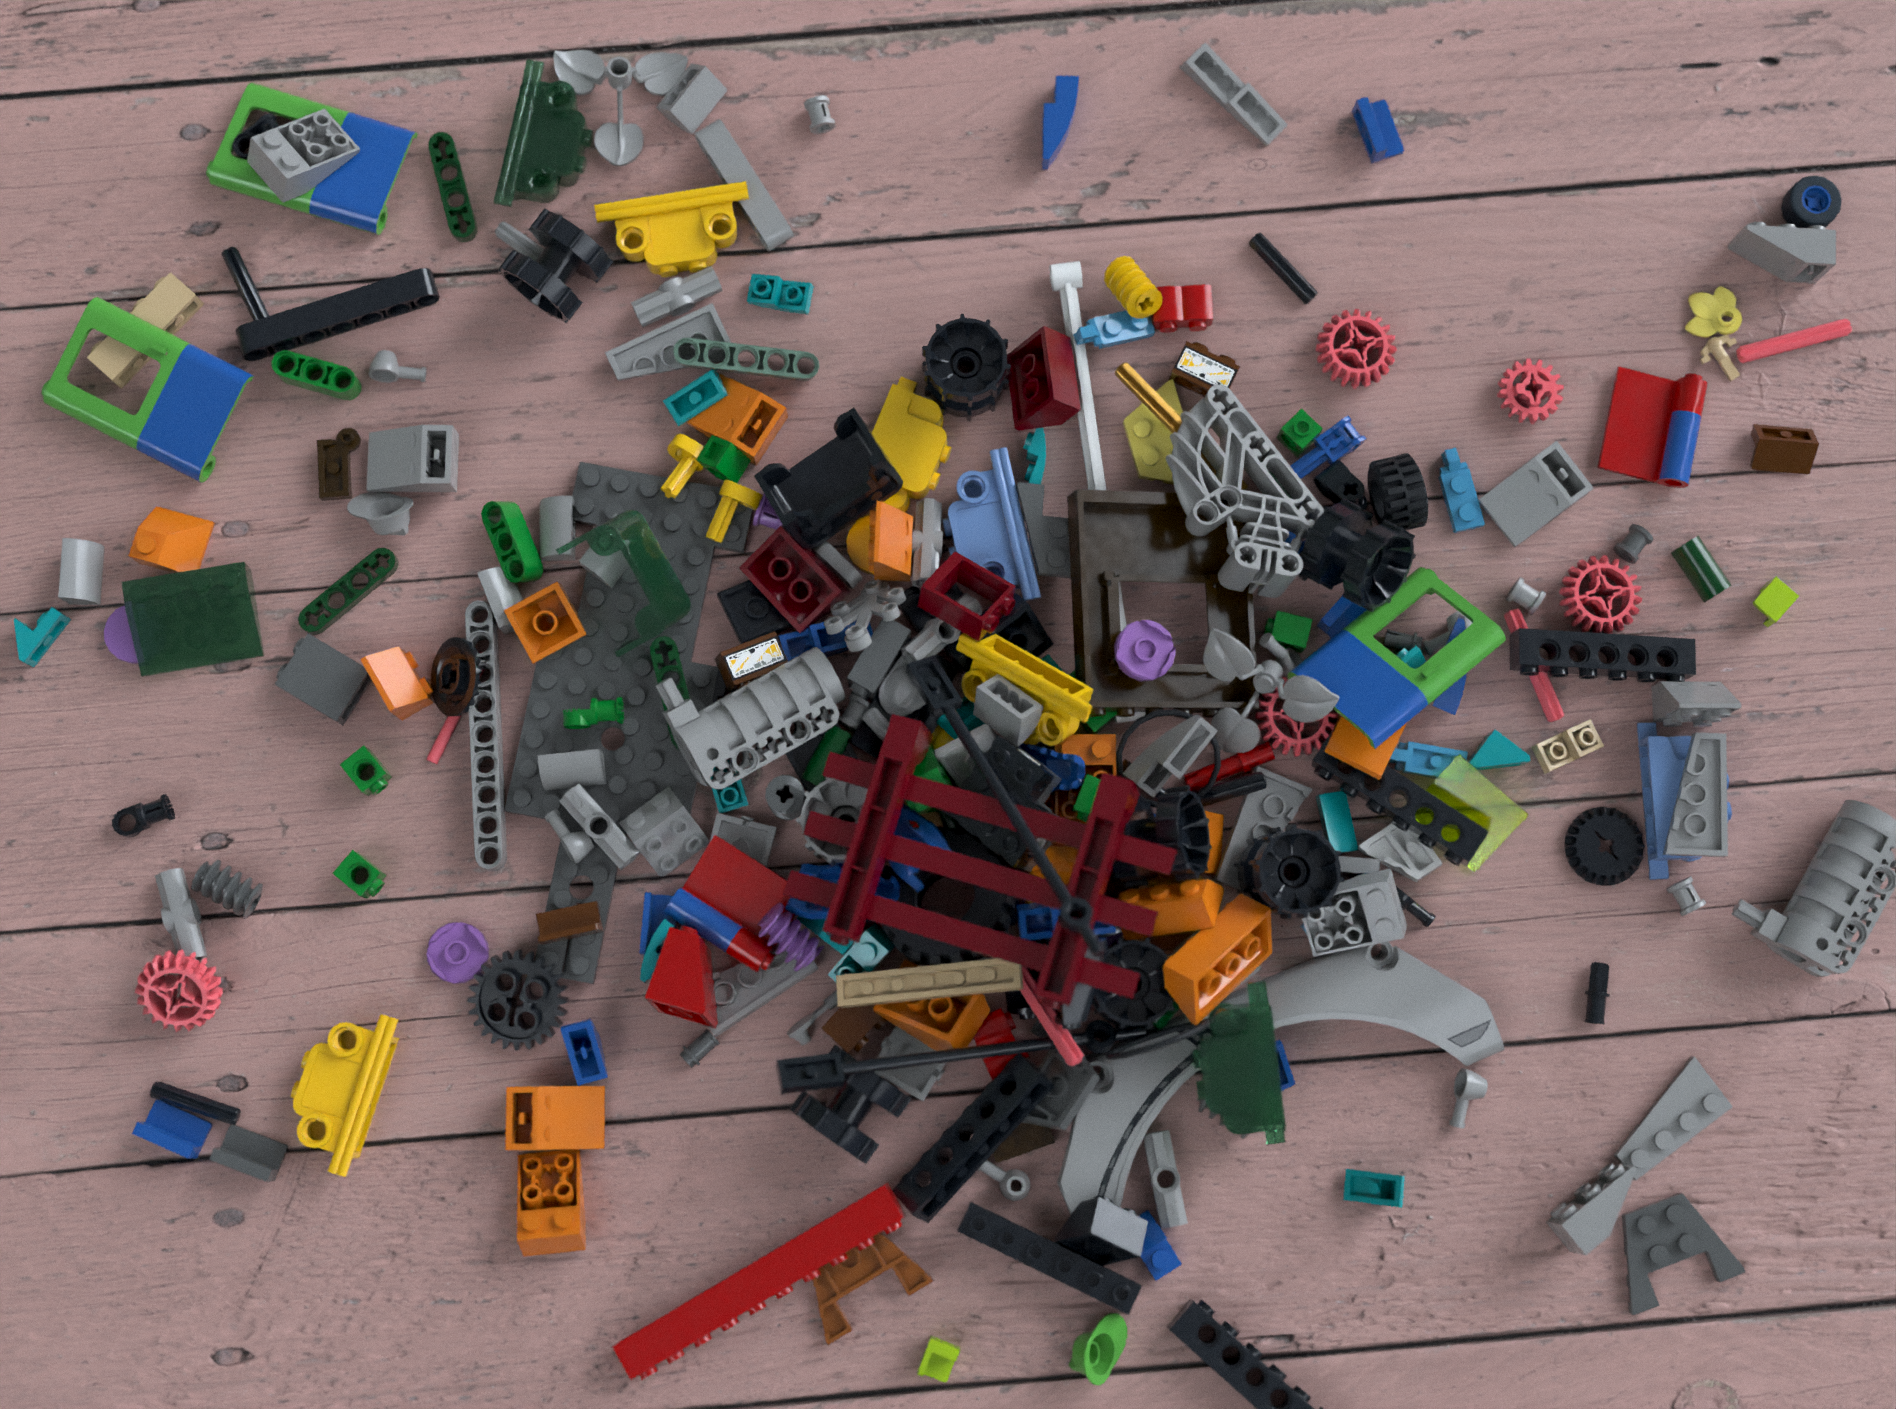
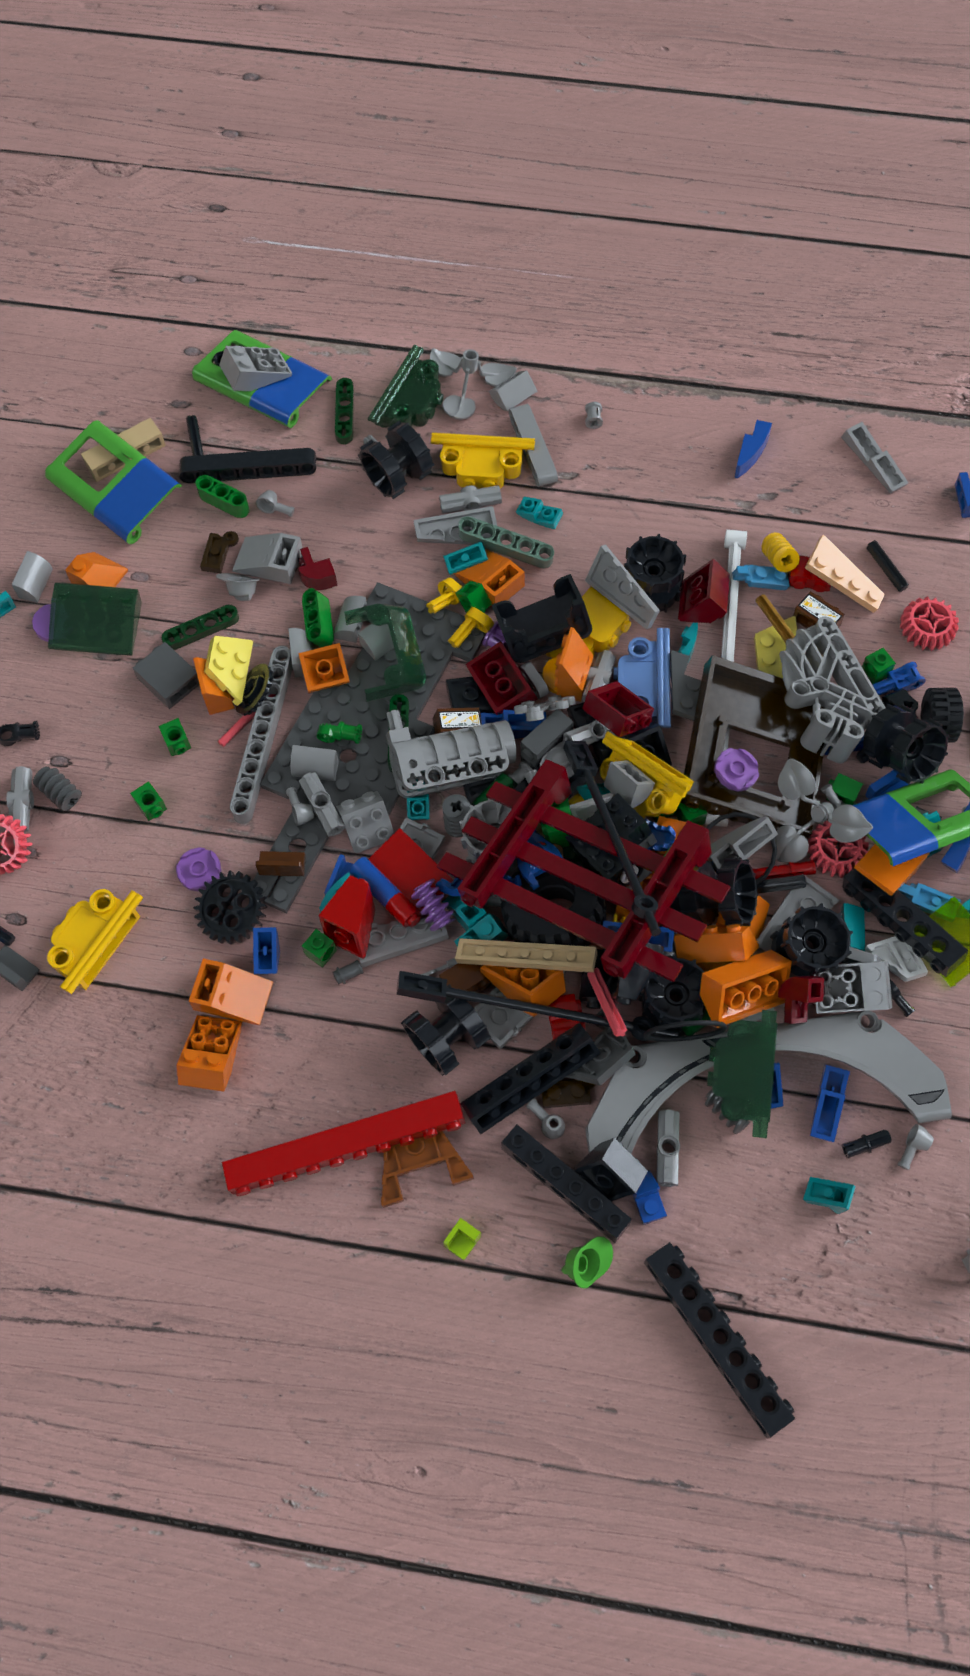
camera: 20 degrees right, 15 degrees down
(410, 648) = (229, 664): none -> light yellow wing
(490, 472) = (318, 574): none -> dark red brick
(653, 1027) = (319, 948): none -> green brick
(921, 404) = (619, 587): none -> light grey wing
(1221, 301) = (838, 571): none -> light nougat wing
(1290, 947) = (797, 994): none -> dark red brick
(1351, 1068) = (829, 1103): none -> blue slope
(1407, 1108) = (866, 1143): none -> black axle

